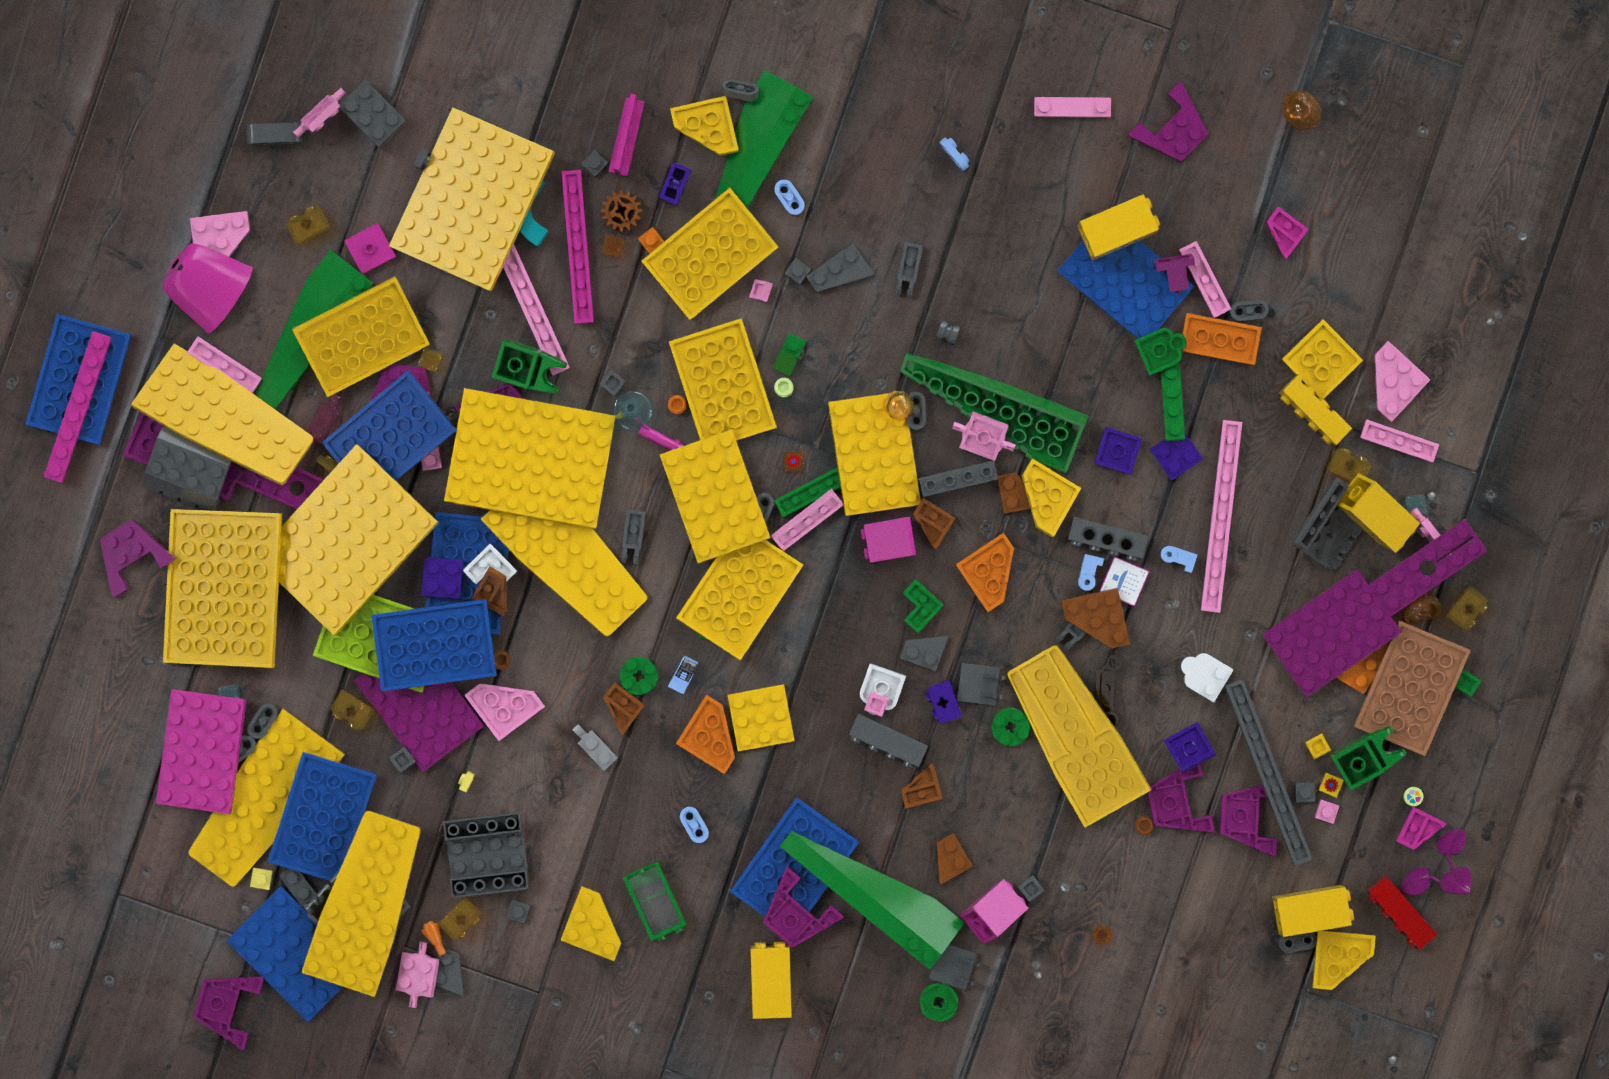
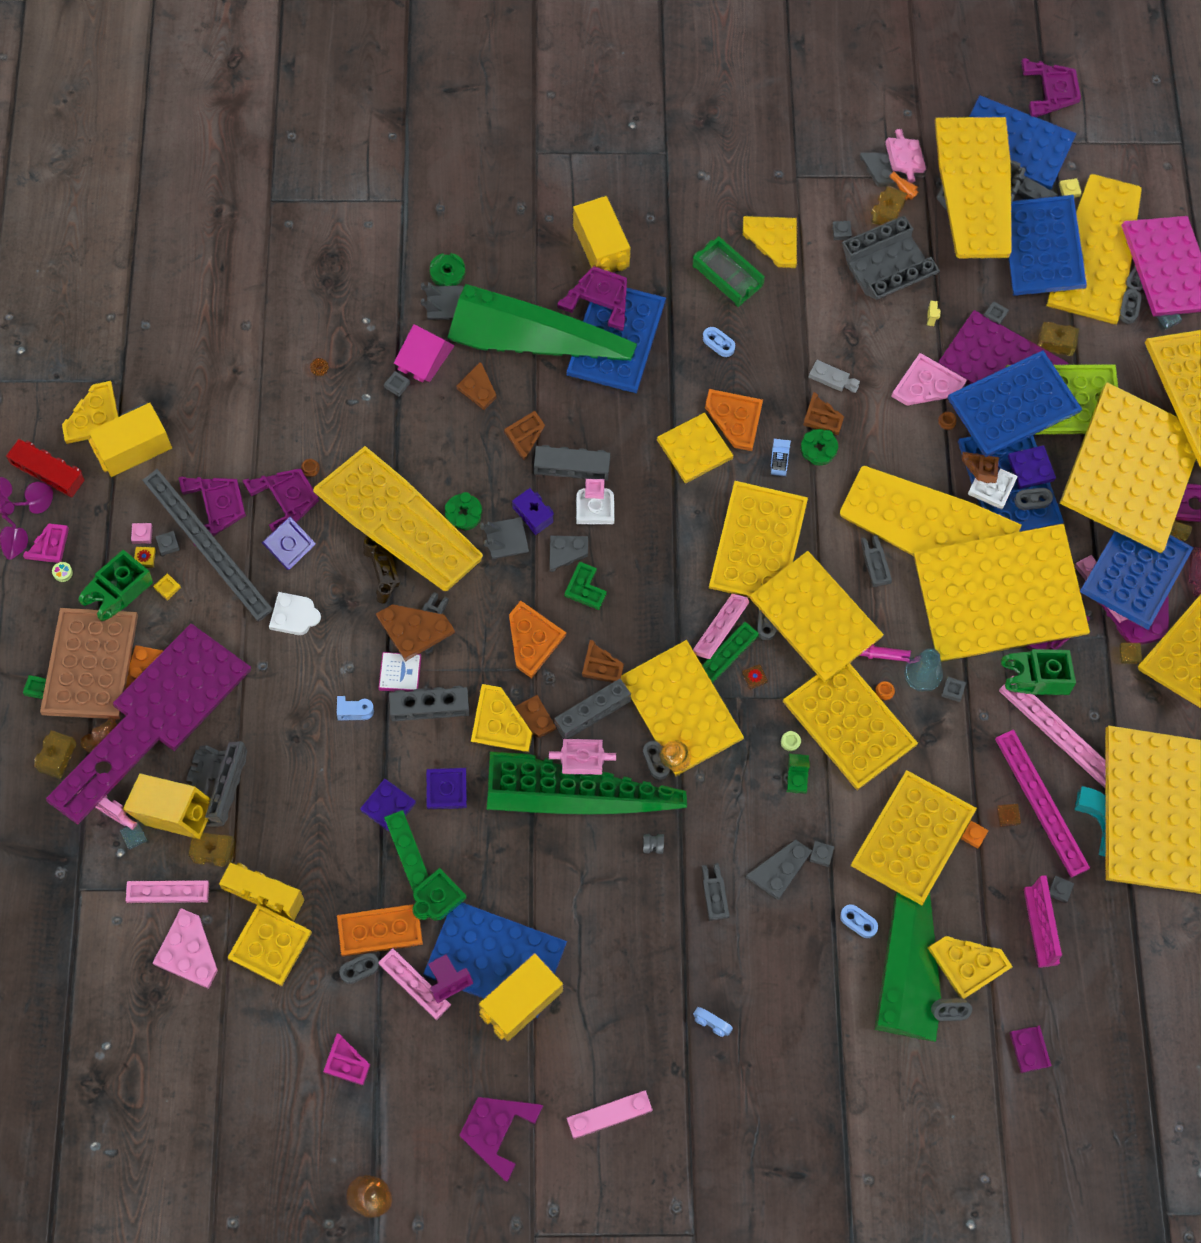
camera: 160 degrees right, 20 degrees down
(456, 542) = (1032, 499): none -> dark grey plate
(630, 207) = (1010, 845): dark orange gear -> none
(675, 184) = (976, 892): dark purple brick -> none
(684, 34) = (1030, 1049): none -> magenta plate
(760, 290) = (850, 821): bright pink plate -> none
(888, 540) = (636, 632): dark pink slope -> none
(1086, 577) = (438, 671): light blue leg -> none
(1221, 516) = (325, 763): bright pink plate -> none

